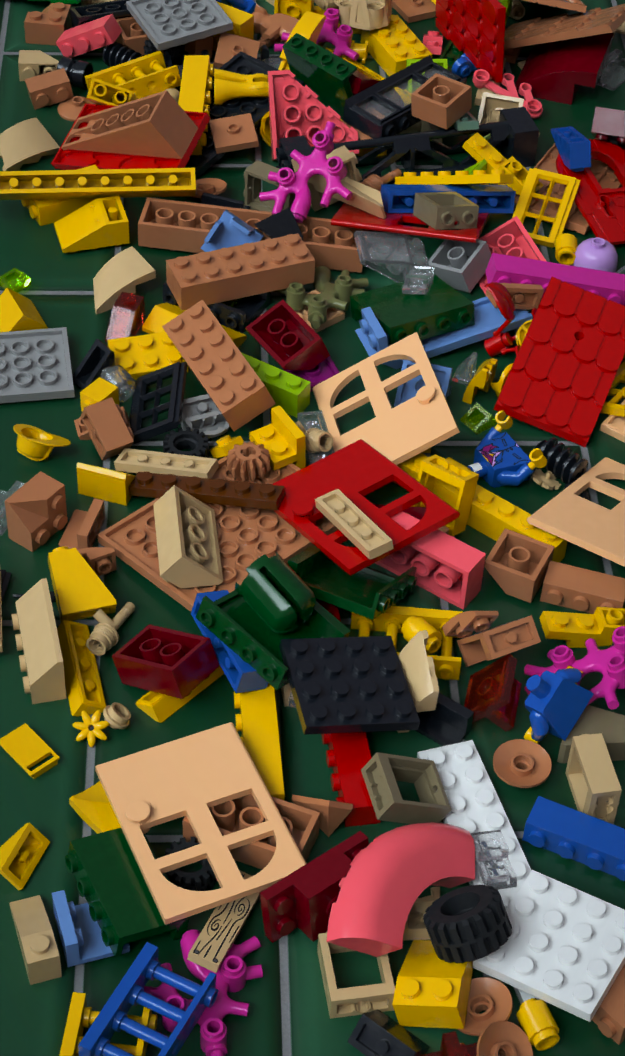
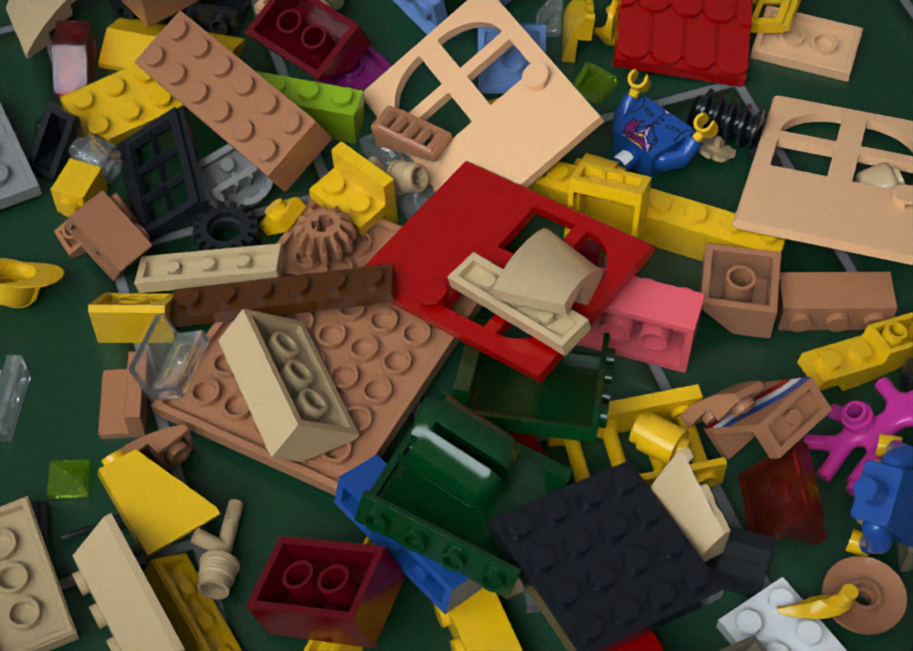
camera: 15 degrees left, 10 degrees up
(29, 565) = (68, 479): none -> clear neon green slope
(36, 511) = (53, 397): nougat slope -> none
(116, 509) = (167, 359): none -> clear panel
(329, 414) = (394, 121): none -> nougat slope
(378, 510) = (547, 275): none -> tan slope
(488, 759) = (822, 605): none -> yellow bar

